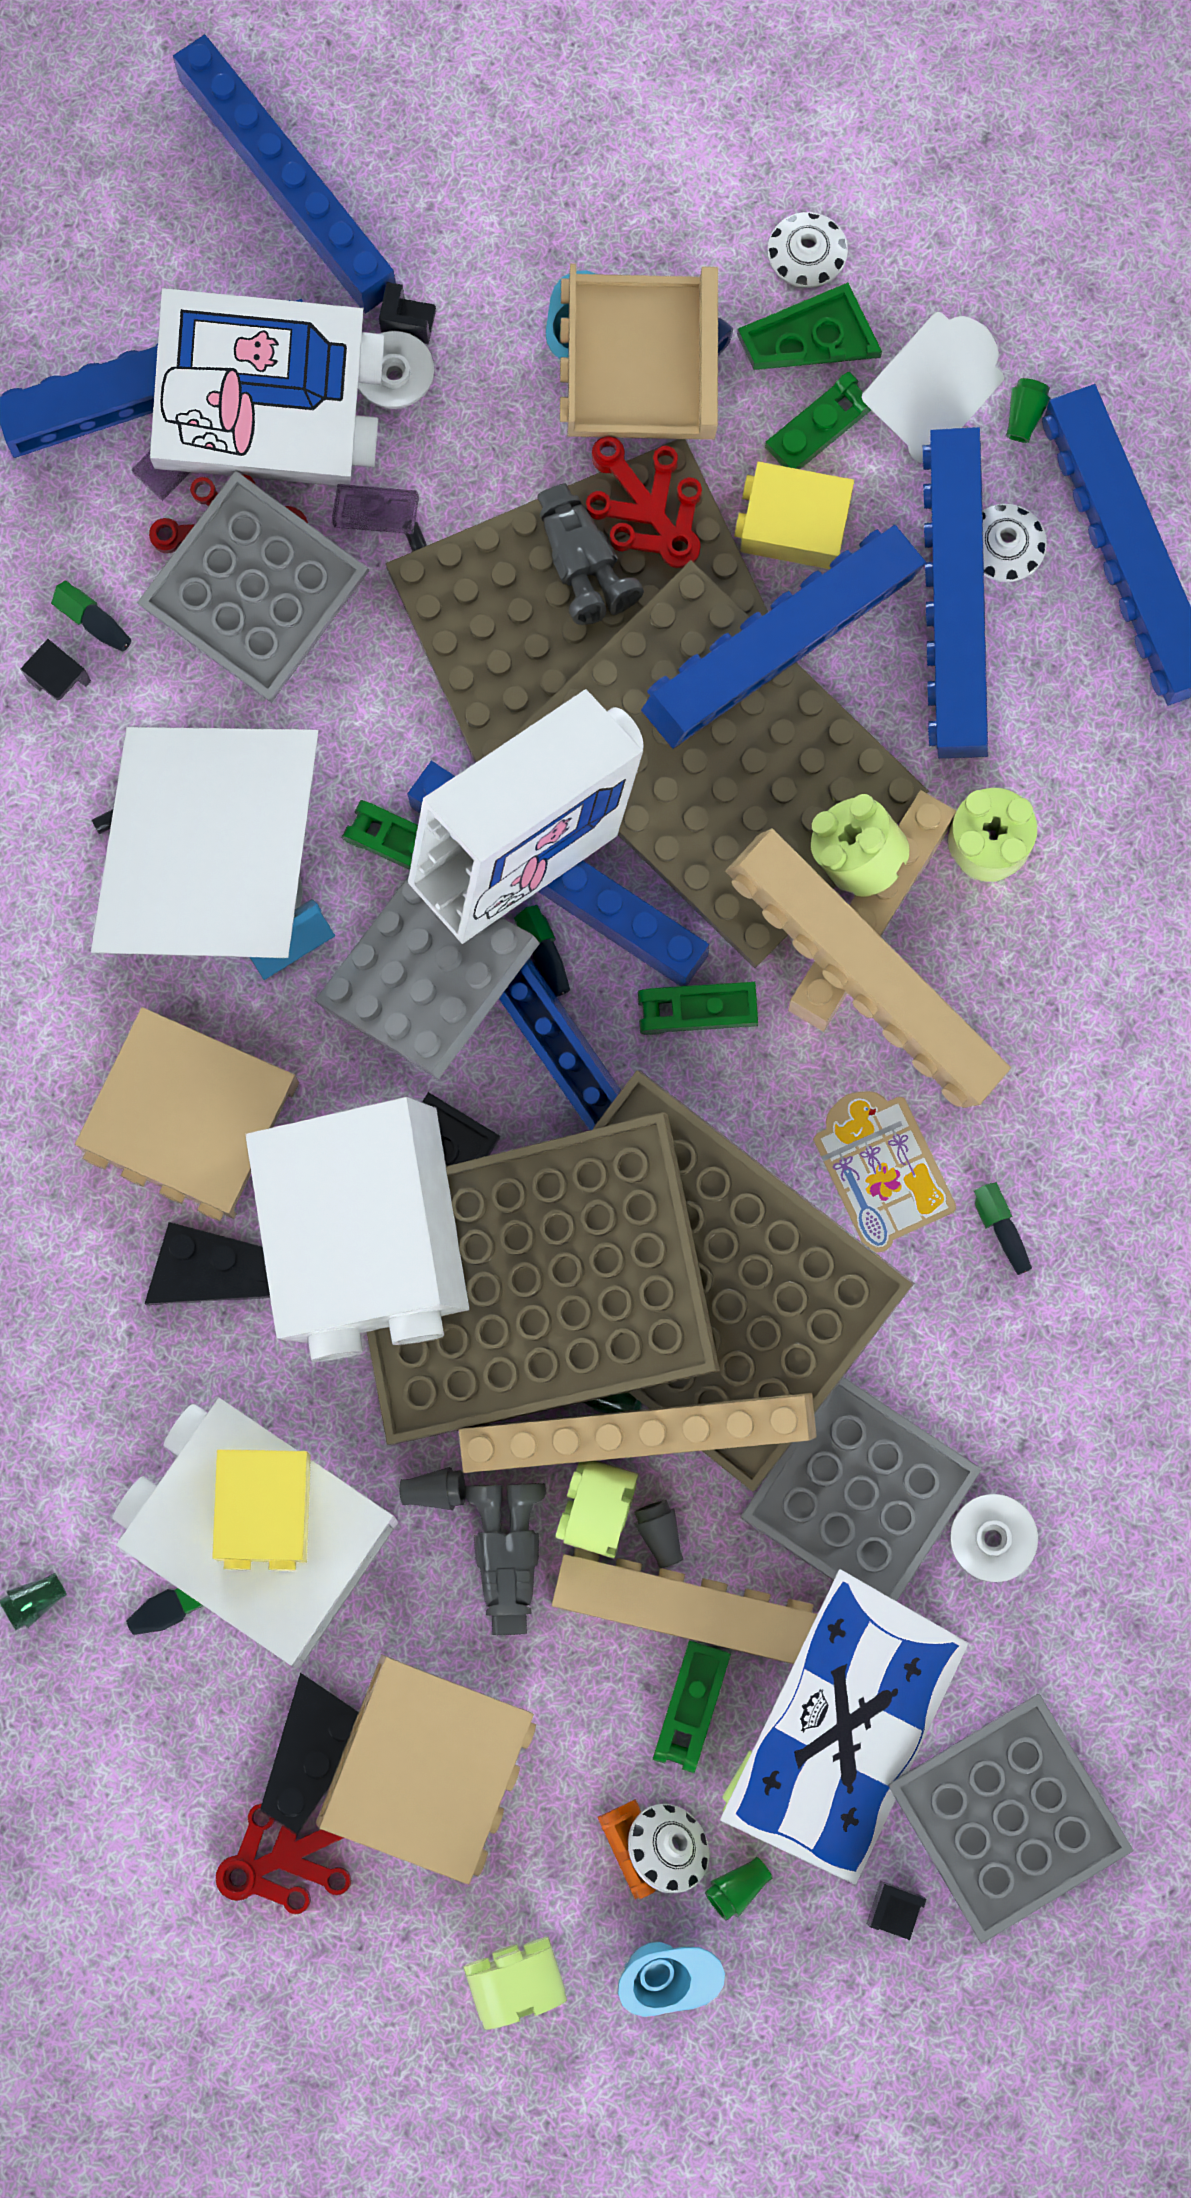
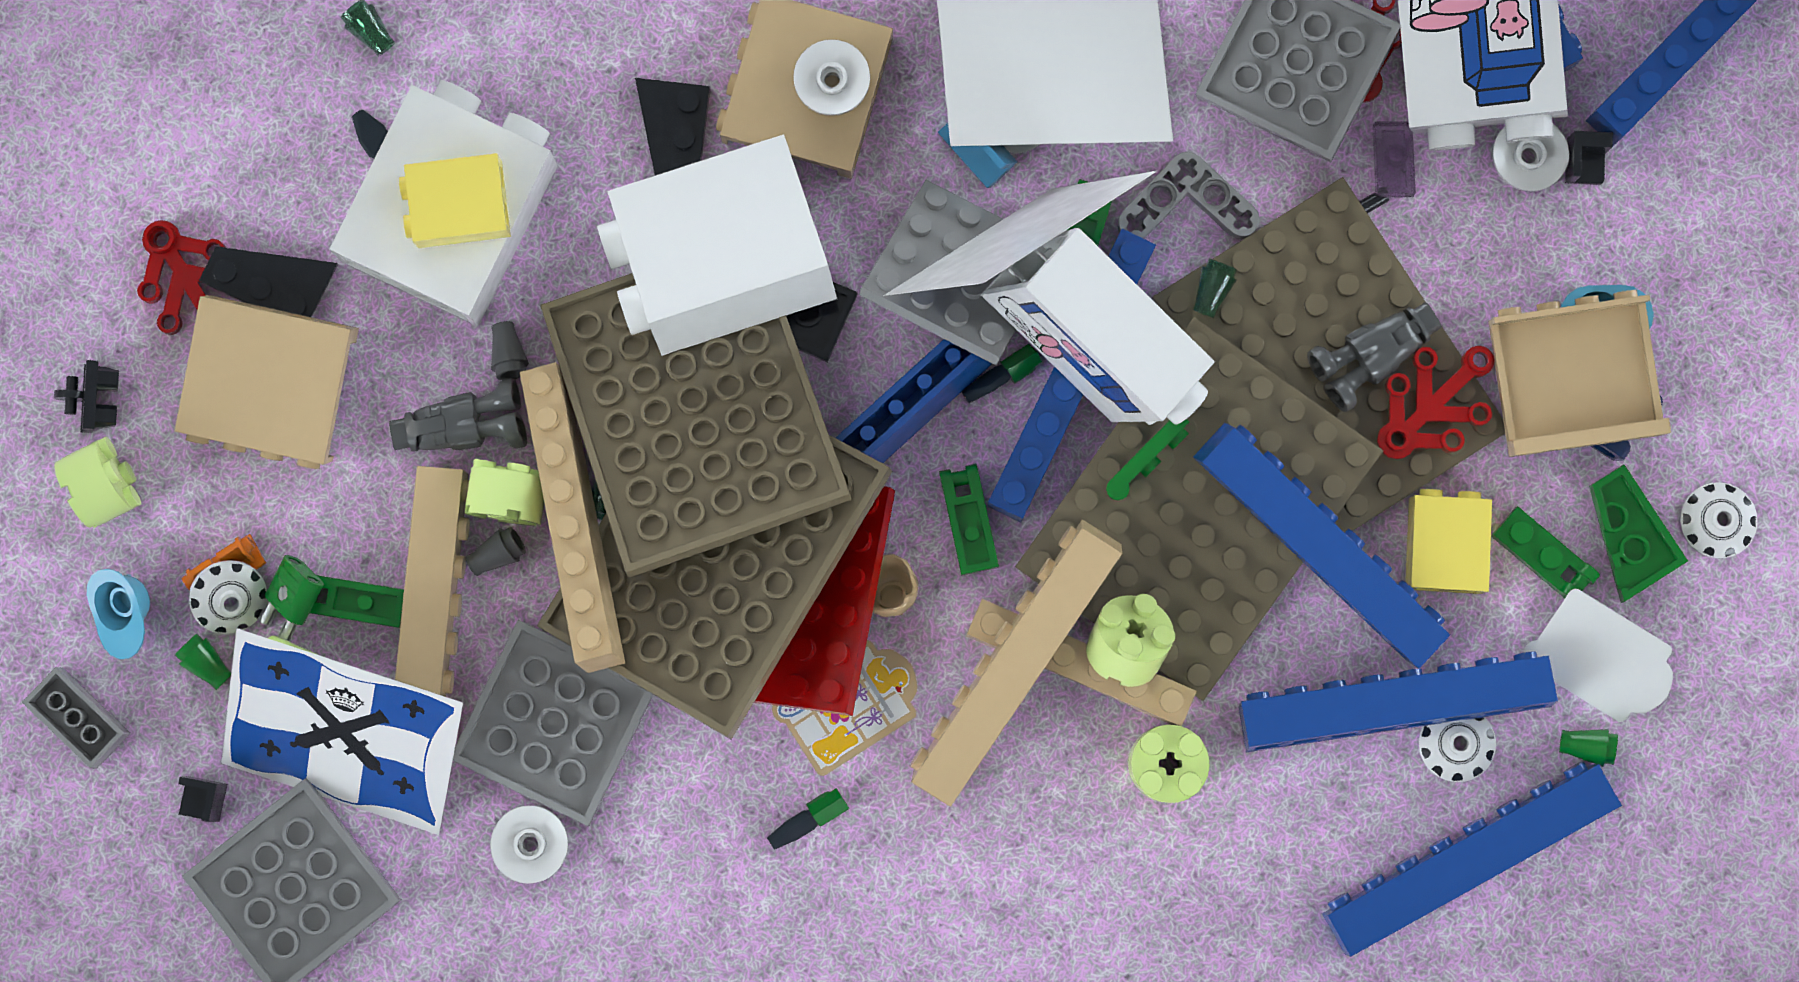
camera: 80 degrees right, 5 degrees up
(176, 1059) = (828, 59): none -> white dish
(373, 718) = (1194, 189): none -> light grey beam
(393, 1980) = (92, 414): none -> black hips
(407, 886) = (1018, 234): none -> white sticker
(485, 708) = (1213, 287): none -> clear green cone
(668, 806) = (1146, 458): none -> green plate
(675, 1769) = (291, 594): none -> green piece
(760, 1101) = (896, 587): none -> tan hair
(783, 2048) = (76, 717): none -> light grey piece
(831, 1172) = (828, 650): none -> red wing

